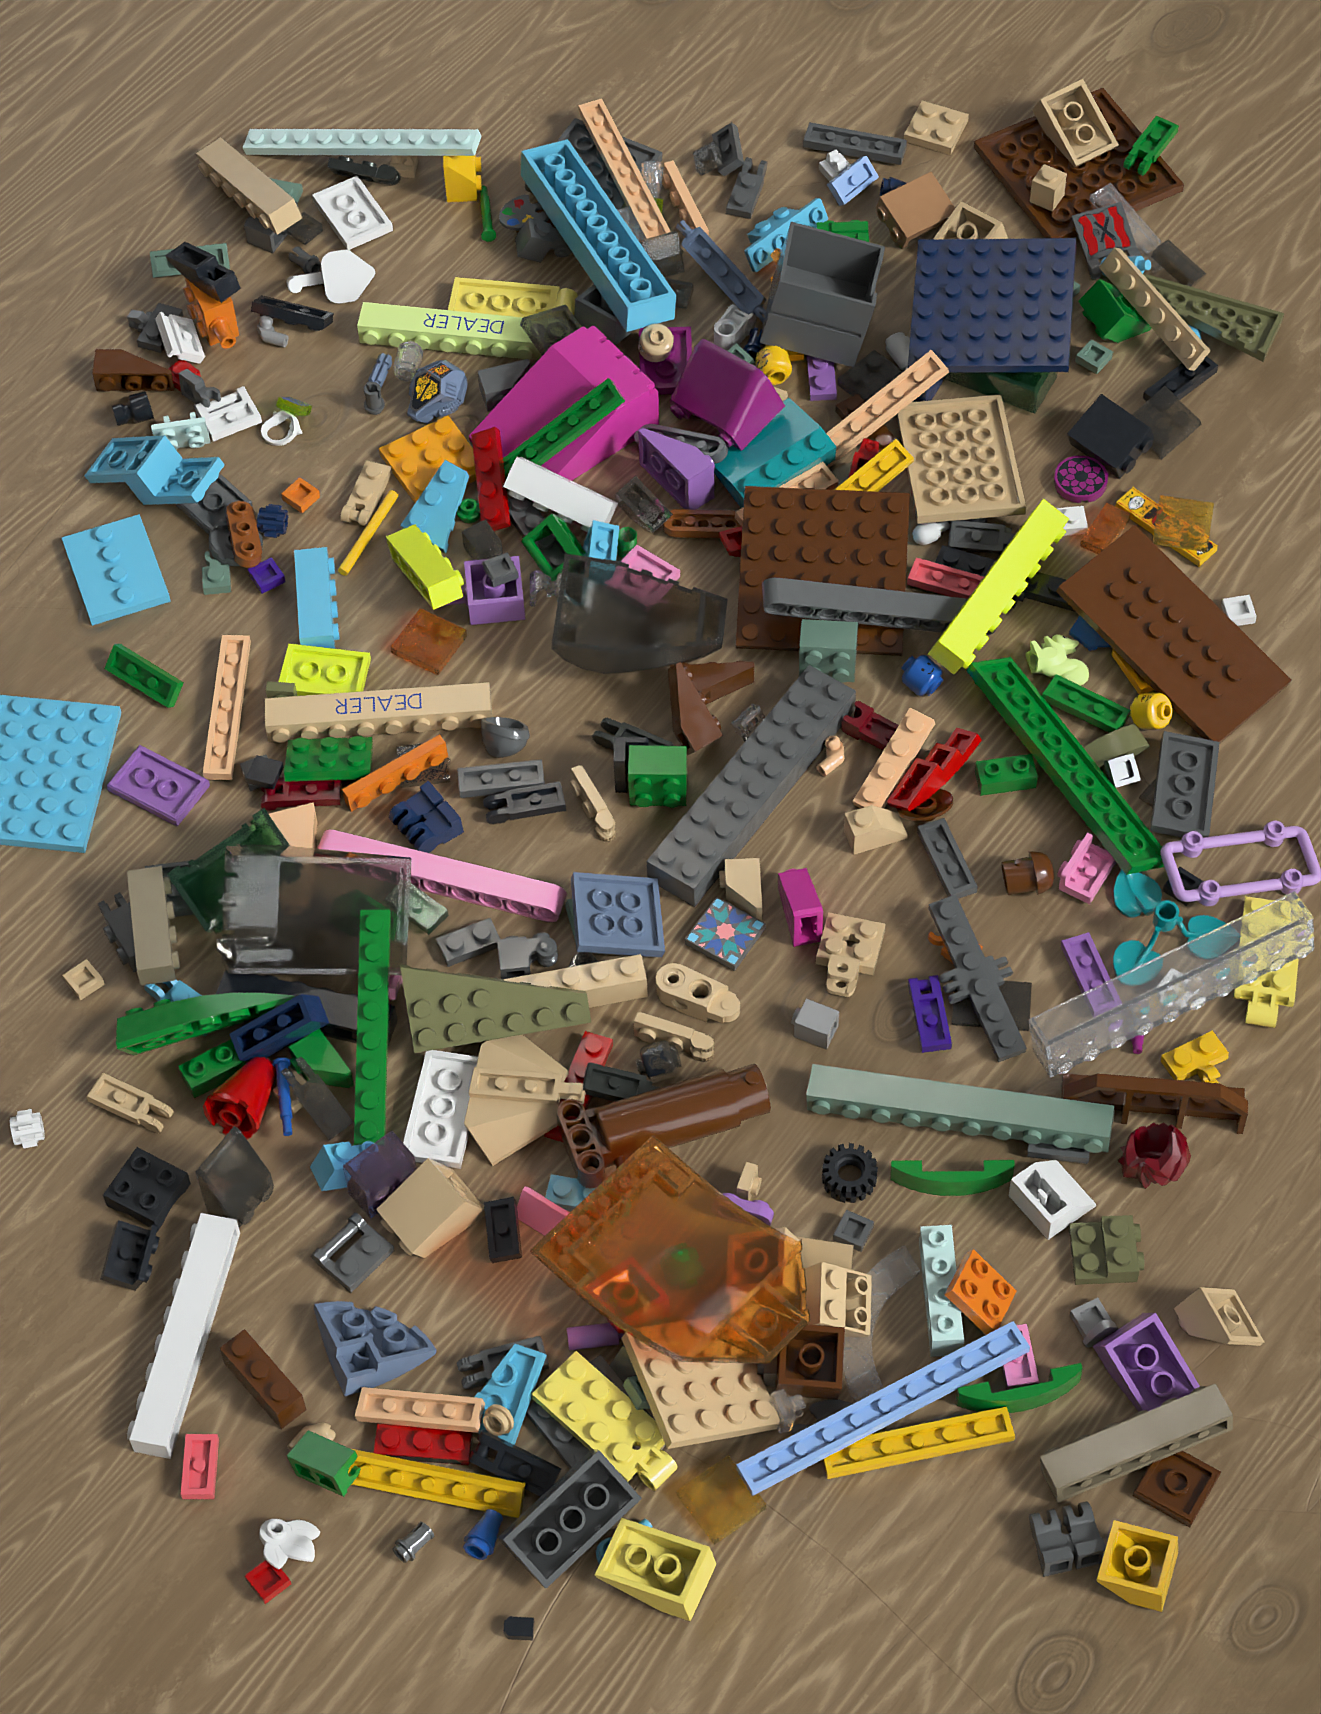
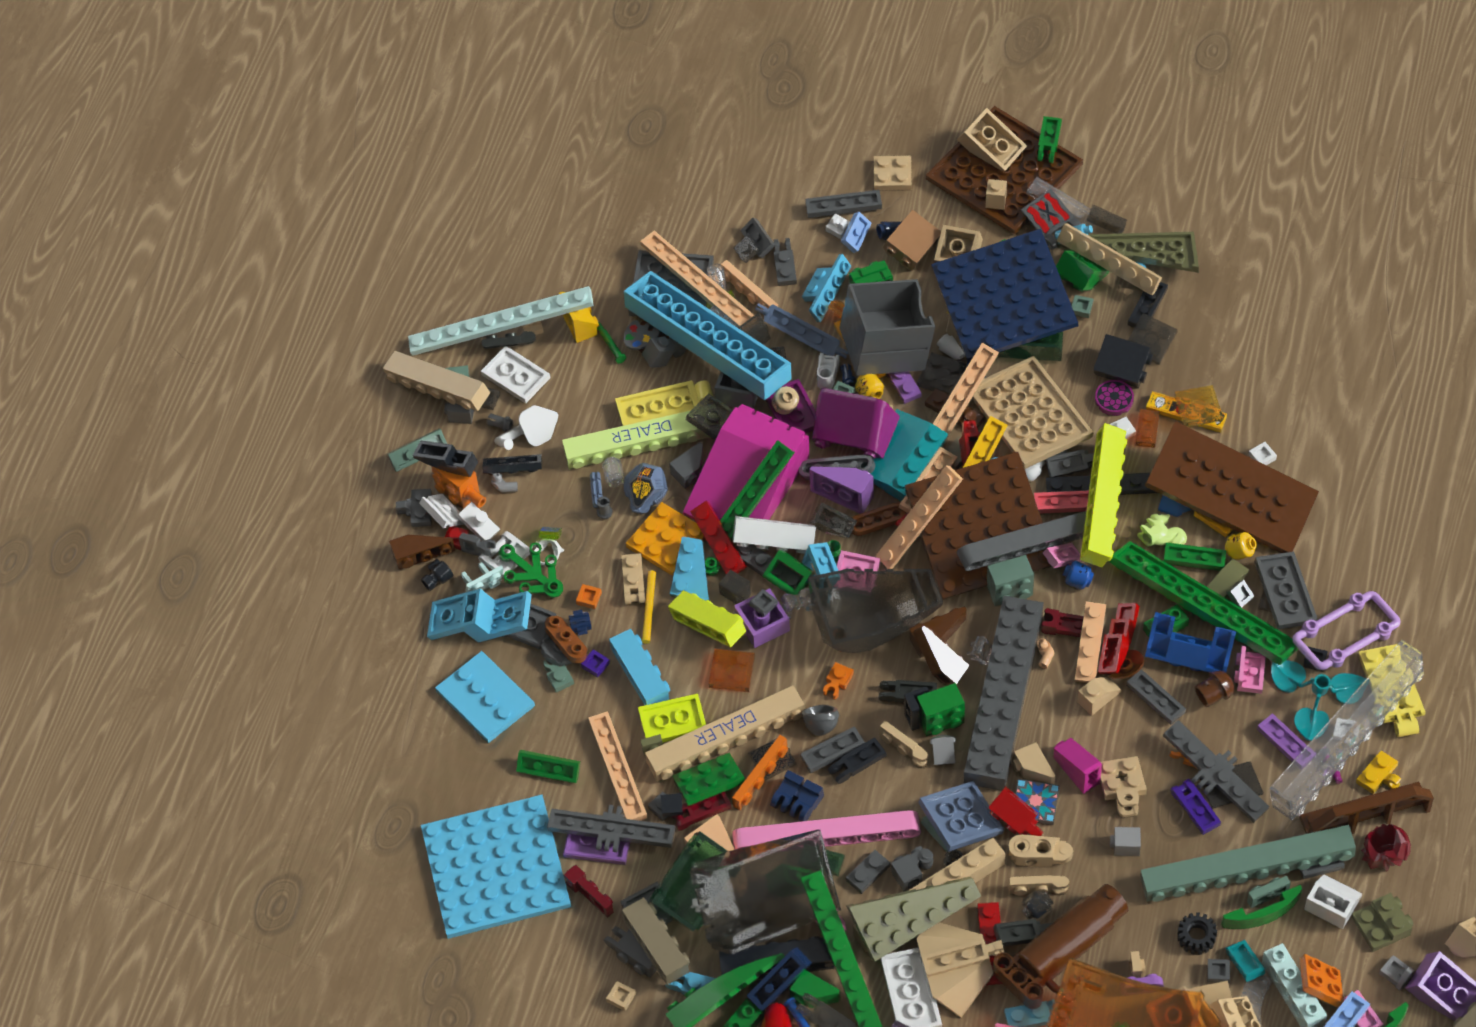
camera: 20 degrees left, 0 degrees up
(107, 827) = (577, 882): none -> dark red plate
(177, 774) = (611, 828): none -> dark grey hinge
(215, 365) = (478, 522): none -> white tile
(247, 444) = (532, 572): none -> green plant
(555, 696) = (837, 678): none -> orange plate
(639, 827) = (943, 749): none -> light grey tile
(687, 935) = (1015, 813): none -> red hinge
(744, 530) = (919, 517): none -> light nougat plate
(895, 1231) = (1245, 960): none -> teal tile
(909, 642) = (1062, 555): none -> bright pink plate
(968, 1155) = (1260, 895): none -> sand green plate
(1016, 815) = (1188, 650): none -> blue bracket

